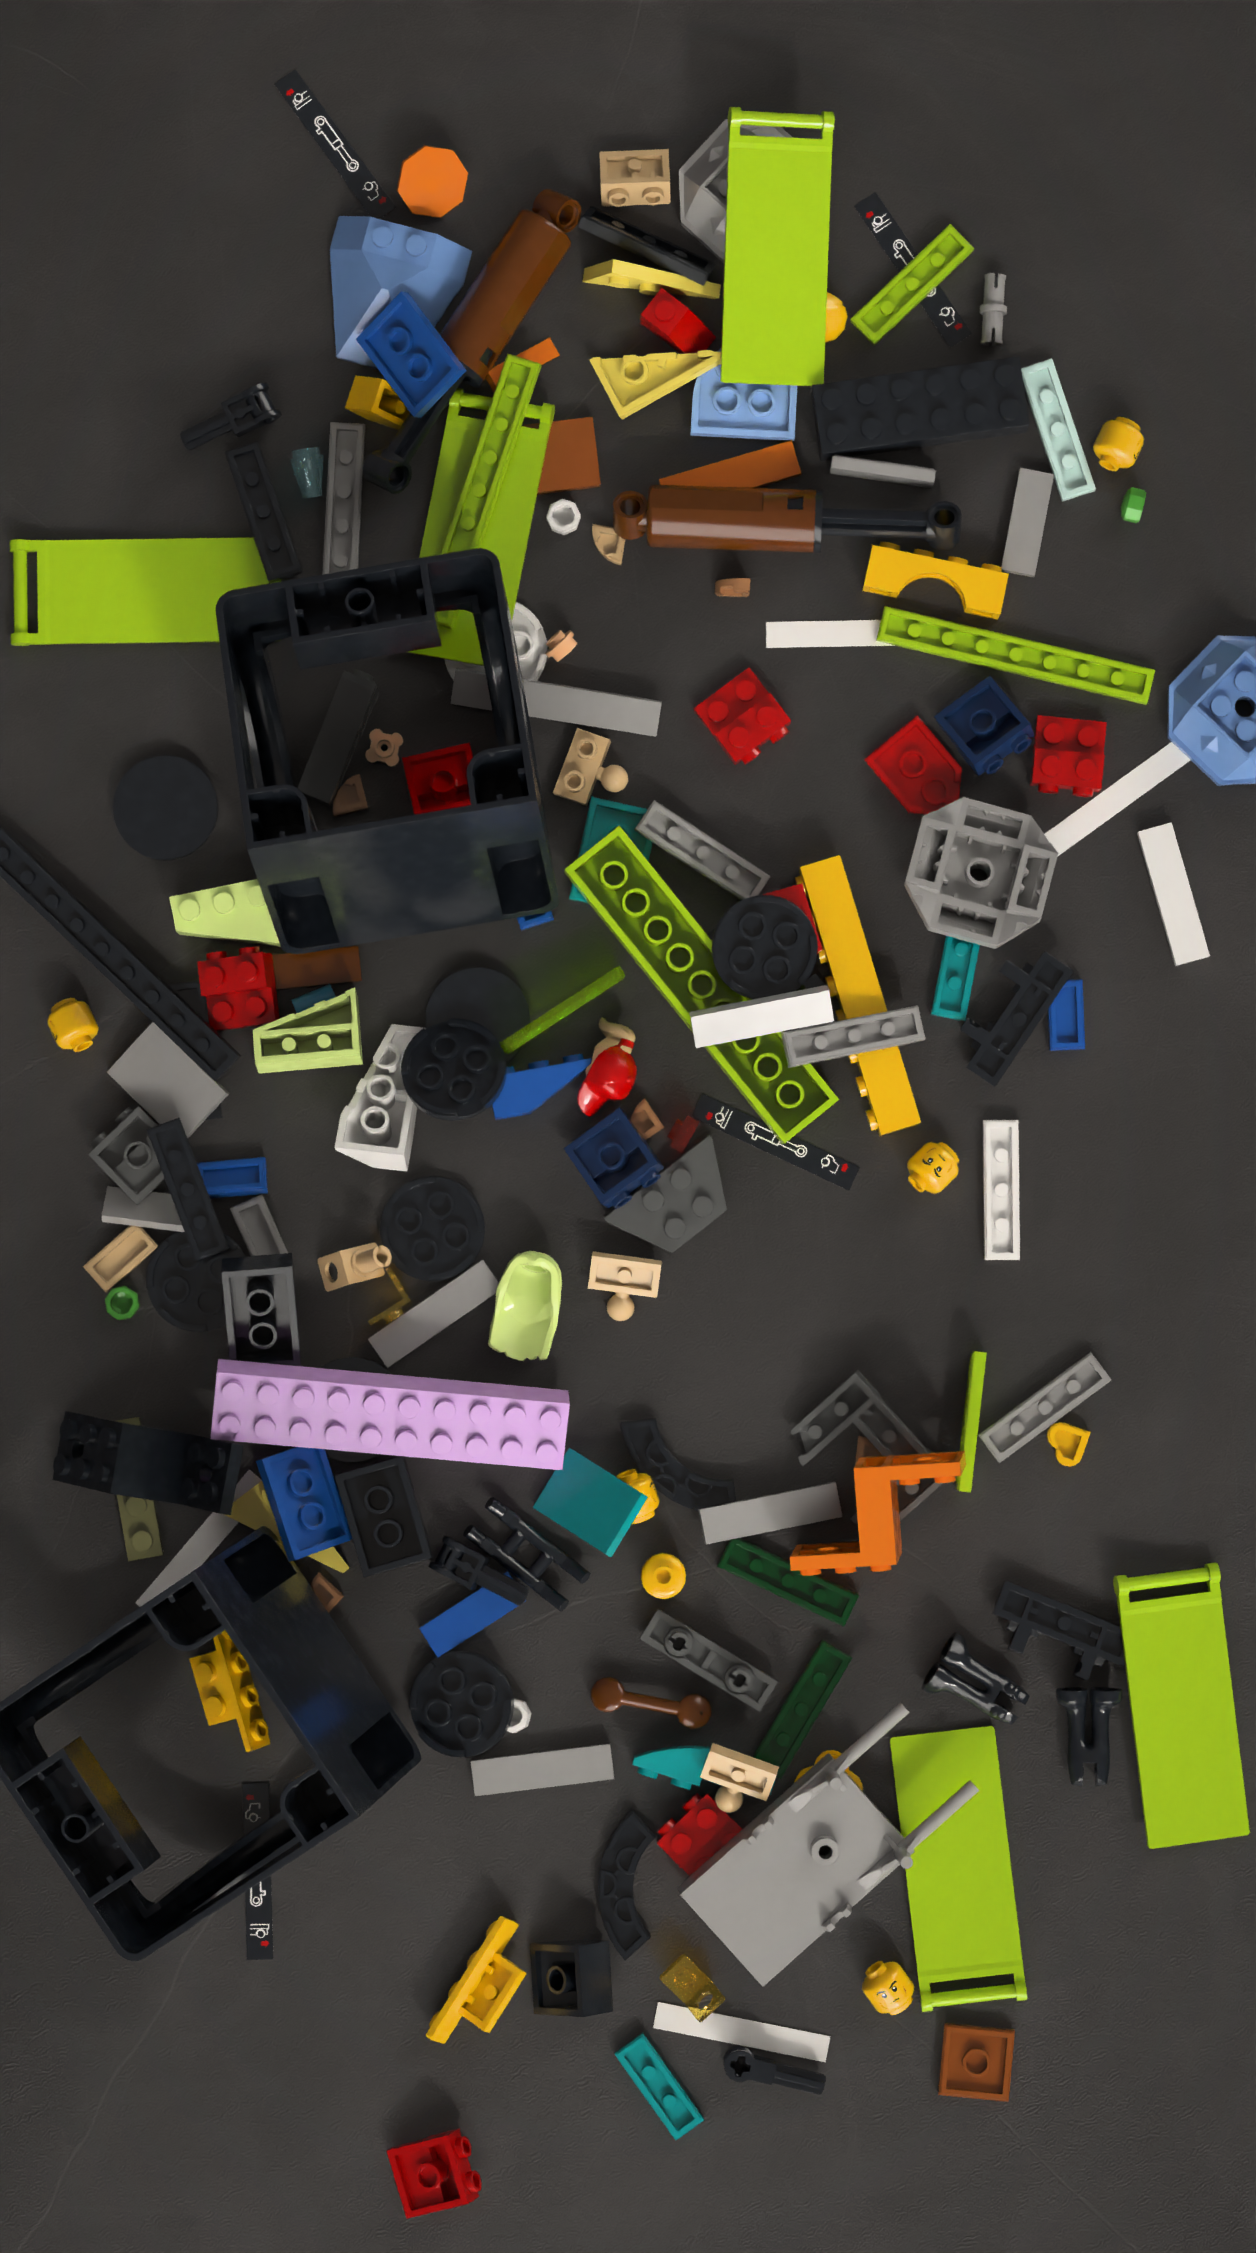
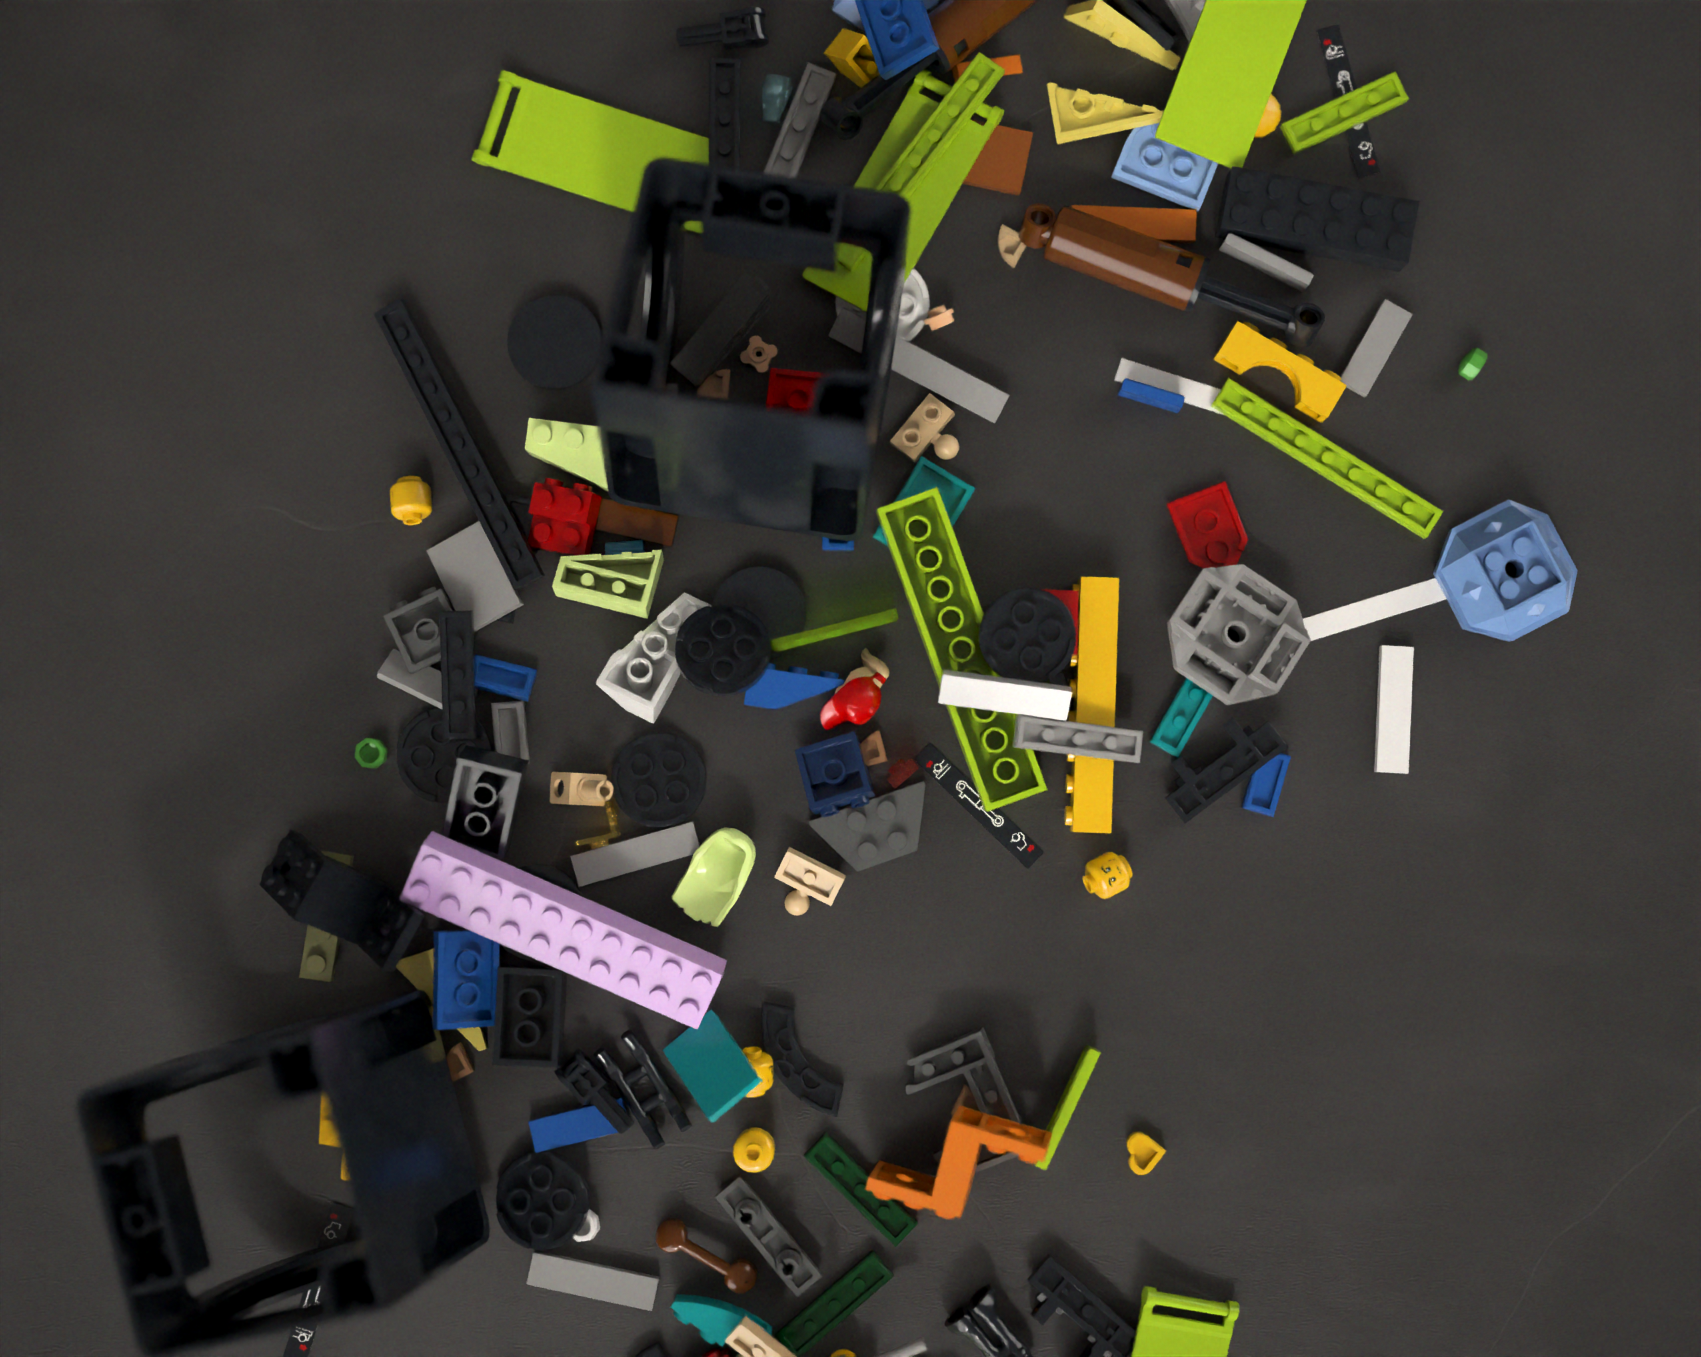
camera: 20 degrees right, 0 degrees up
(120, 1257) = (384, 713): tan tile -> none
(199, 1546) = (362, 986): white sticker -> none
(563, 516) = (979, 209): white tile -> none
(676, 324) = (1131, 76): red slope -> none
(701, 852) = (999, 535): light grey tile -> none
(733, 587) = (1104, 318): medium nougat tile -> none
(743, 717) = (1075, 432): red plate -> none
(770, 1513) = (865, 1126): light grey tile -> none
(809, 652) = (1151, 395): none -> blue tile
(985, 726) = (1281, 510): dark blue plate -> none
(993, 309) = (1407, 157): light grey pin -> none
(1001, 1190) = (1159, 914): white tile -> none
(1044, 1407) = (1133, 1115): light grey tile -> none
(1057, 430) = (1427, 279): light aqua tile -> none
(1068, 755) = (1343, 559): red plate -> none
(1118, 443) = (1477, 306): yellow head -> none

